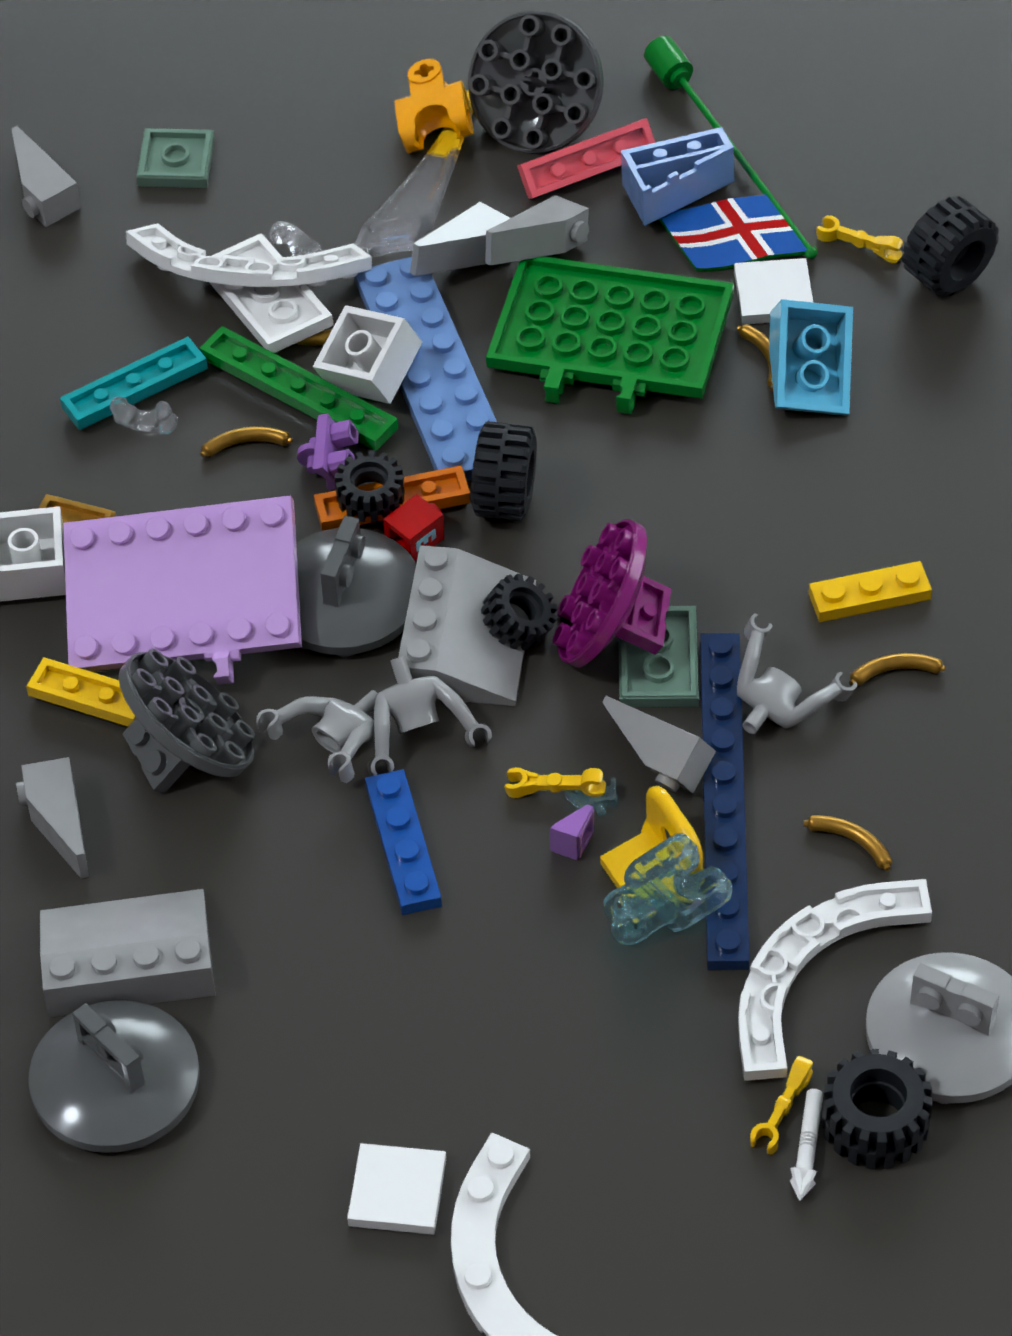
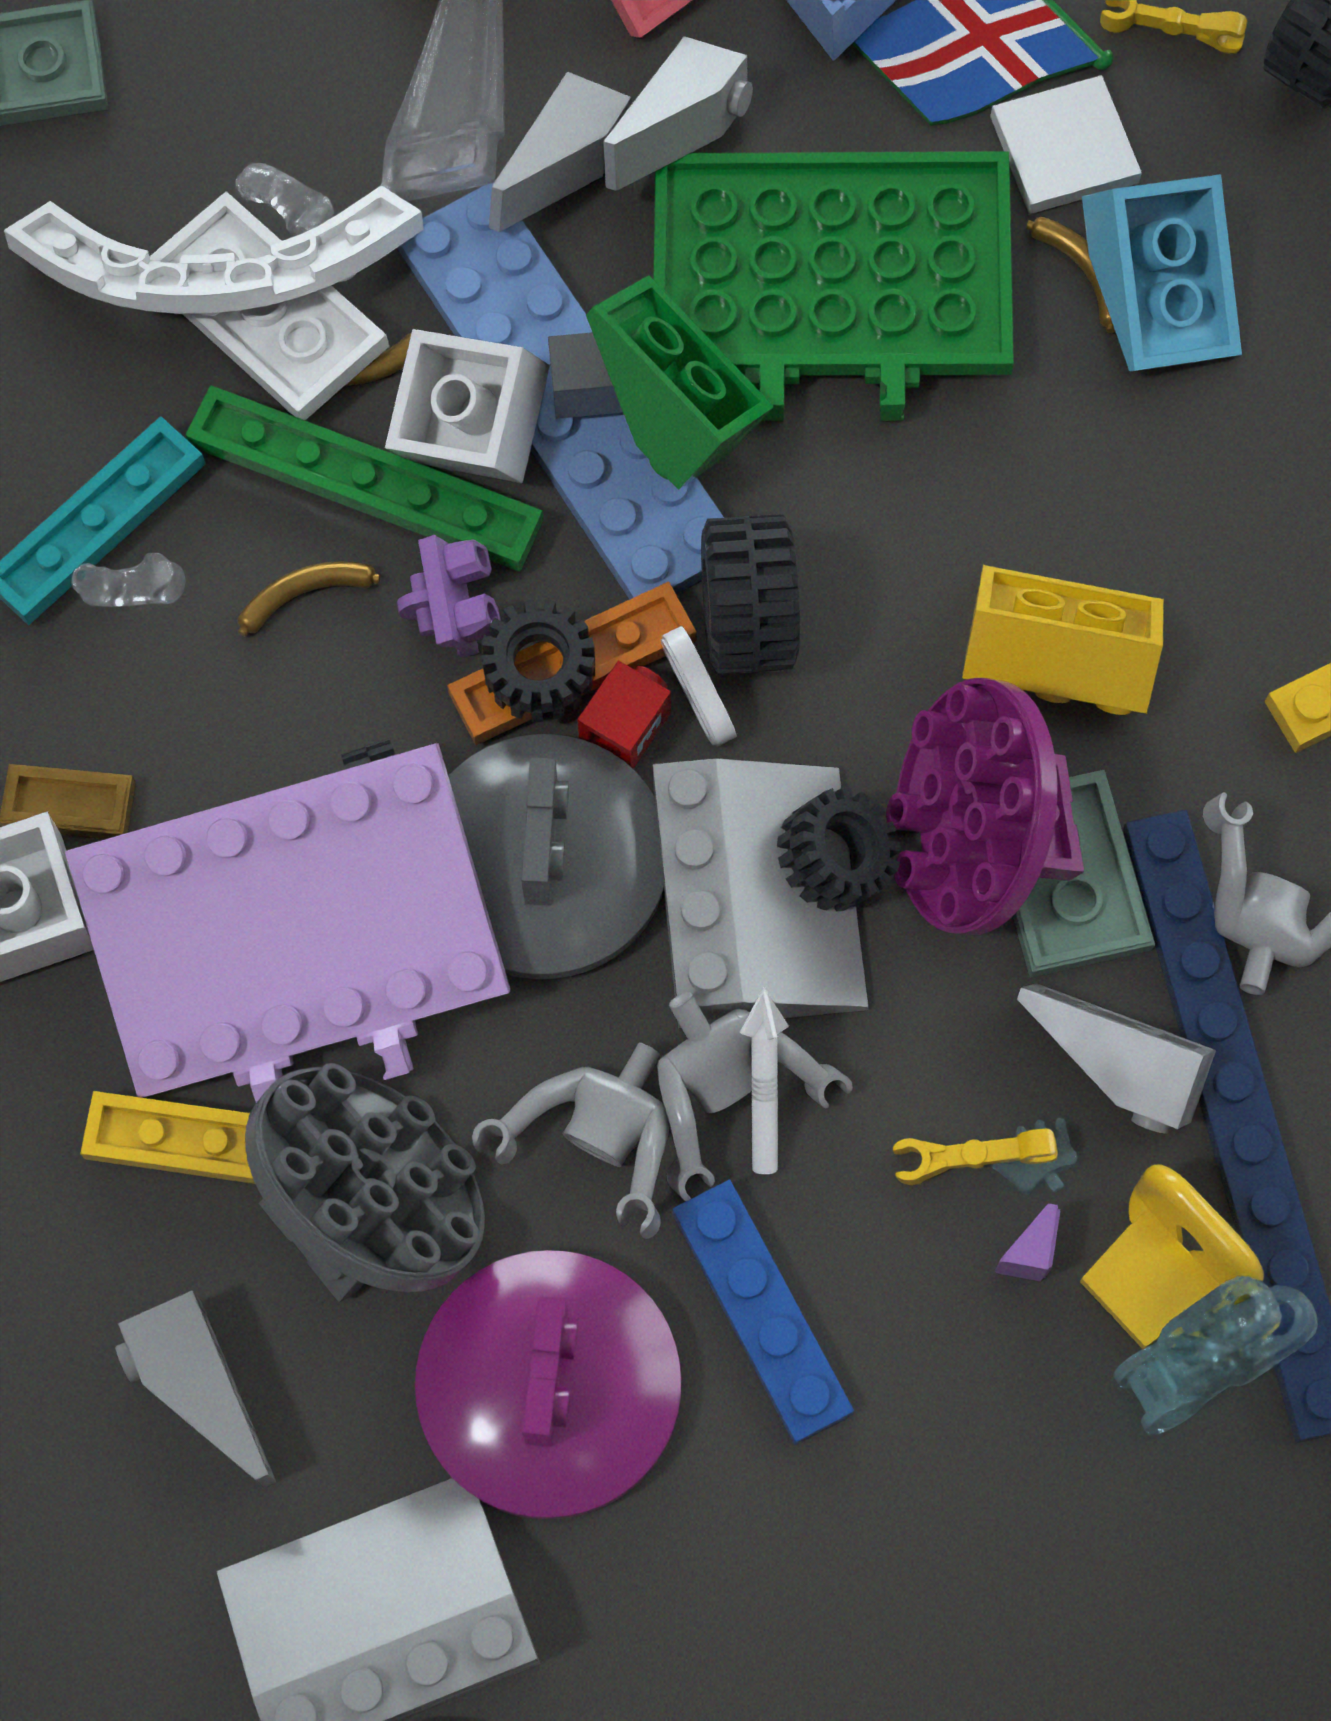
camera: 15 degrees left, 20 degrees up
(263, 850) = (548, 1384): none -> magenta bracket
(442, 678) = (763, 1026): none -> white piece
(445, 350) = (580, 377): none -> dark grey brick
(461, 518) = (698, 686): none -> white tile
(491, 360) = (673, 383): none -> green slope
(694, 536) = (1066, 640): none -> yellow slope

